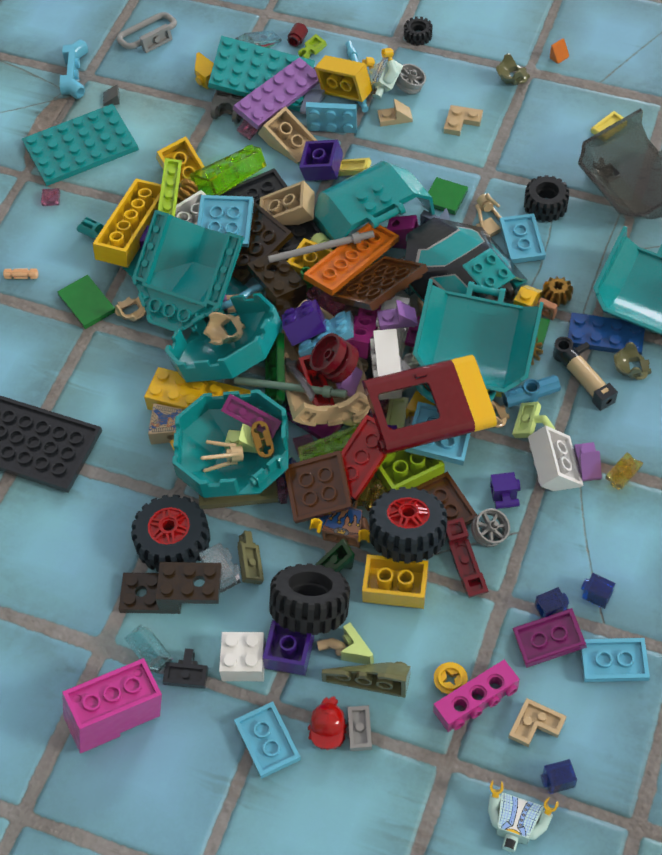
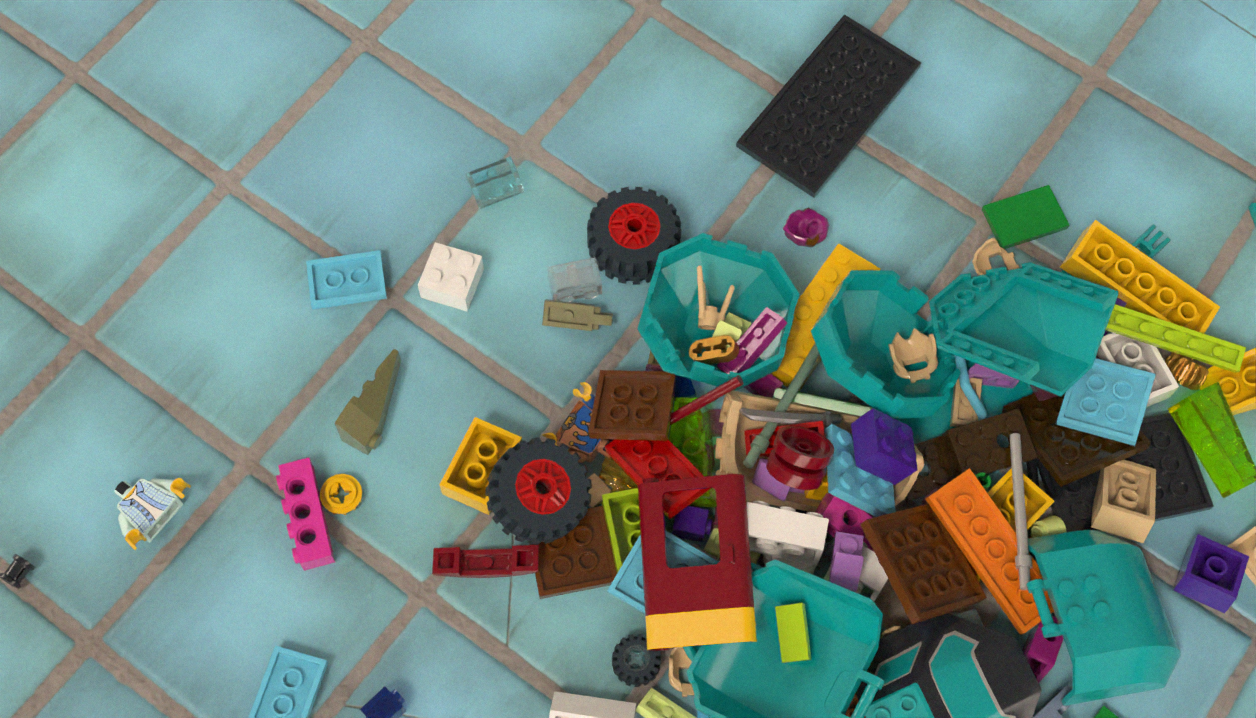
camera: 100 degrees right, 10 degrees up
(21, 273) = (1092, 150): light nougat axle -> none
(50, 197) = (1223, 207): clear pink tile -> none
(111, 705) = (431, 124): dark pink piece -> none
(132, 424) = (806, 227): none -> magenta hair
(163, 423) = (800, 263): torso -> none
(170, 588) = (562, 221): dark brown bracket -> none
(186, 672) = (457, 218): black hinge -> none
(287, 650) = (440, 324): dark purple brick -> none
(302, 431) = (706, 399): none -> dark red bar
(309, 599) = (513, 348): black tyre -> none
(327, 725) = (332, 342): red hair -> none
(331, 643) = (433, 379): tan arm -> none
(338, 557) = (535, 409): dark green slope -> none
(353, 166) = (1194, 623): light yellow tile -> none
(357, 649) = (412, 403): yellowish green slope -> none
(359, 728) = (320, 377): light grey plate -> none
(453, 342) = (793, 633): none -> lime tile
(490, 527) = (516, 605): light grey wheel -> none
(492, 441) = (634, 651): none -> black wheel
(504, 490) = (570, 645): dark purple brick -> none
(534, 717) = (255, 570): tan plate -> none
(549, 637) = (344, 625): magenta tile -> none
(551, 602) = (386, 644): clear blue brick -> none
(559, 776) = (174, 570): clear blue brick -> none

